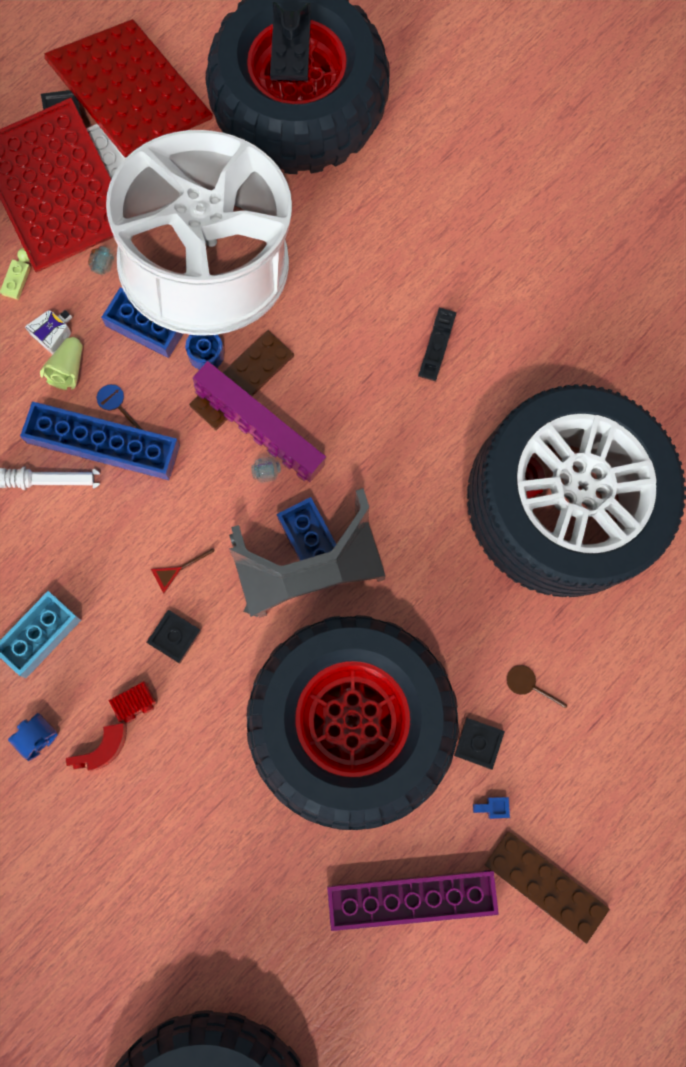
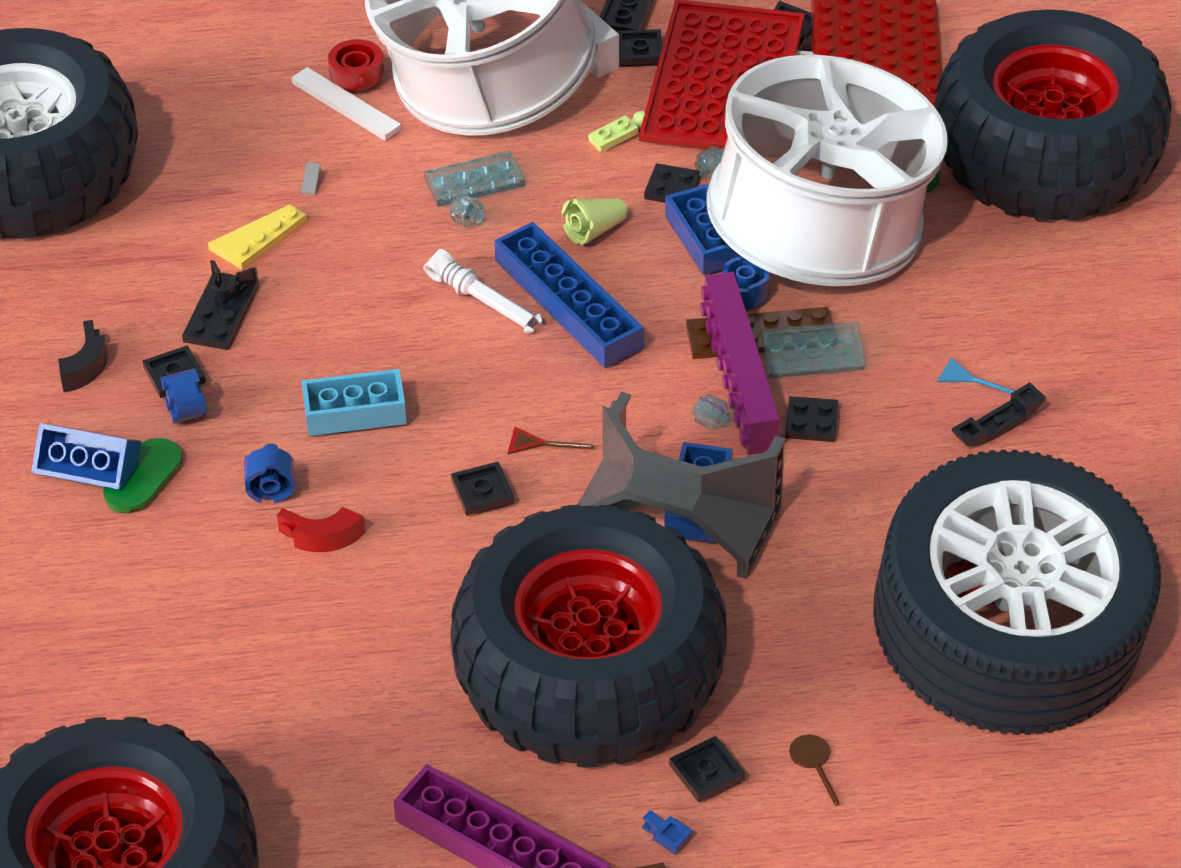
camera: 40 degrees right, 30 degrees down
(50, 329) = (608, 183): torso -> none
(88, 296) = (669, 180): none -> black plate
(110, 398) = (613, 274): blue piece -> none
(133, 702) = (390, 512): red brick -> none
(288, 374) = (813, 350): none -> clear light blue plate
(290, 43) = (1057, 59): black plate -> none
(327, 426) = (811, 419): none -> black plate
(382, 325) = (956, 373): none -> dark azure piece

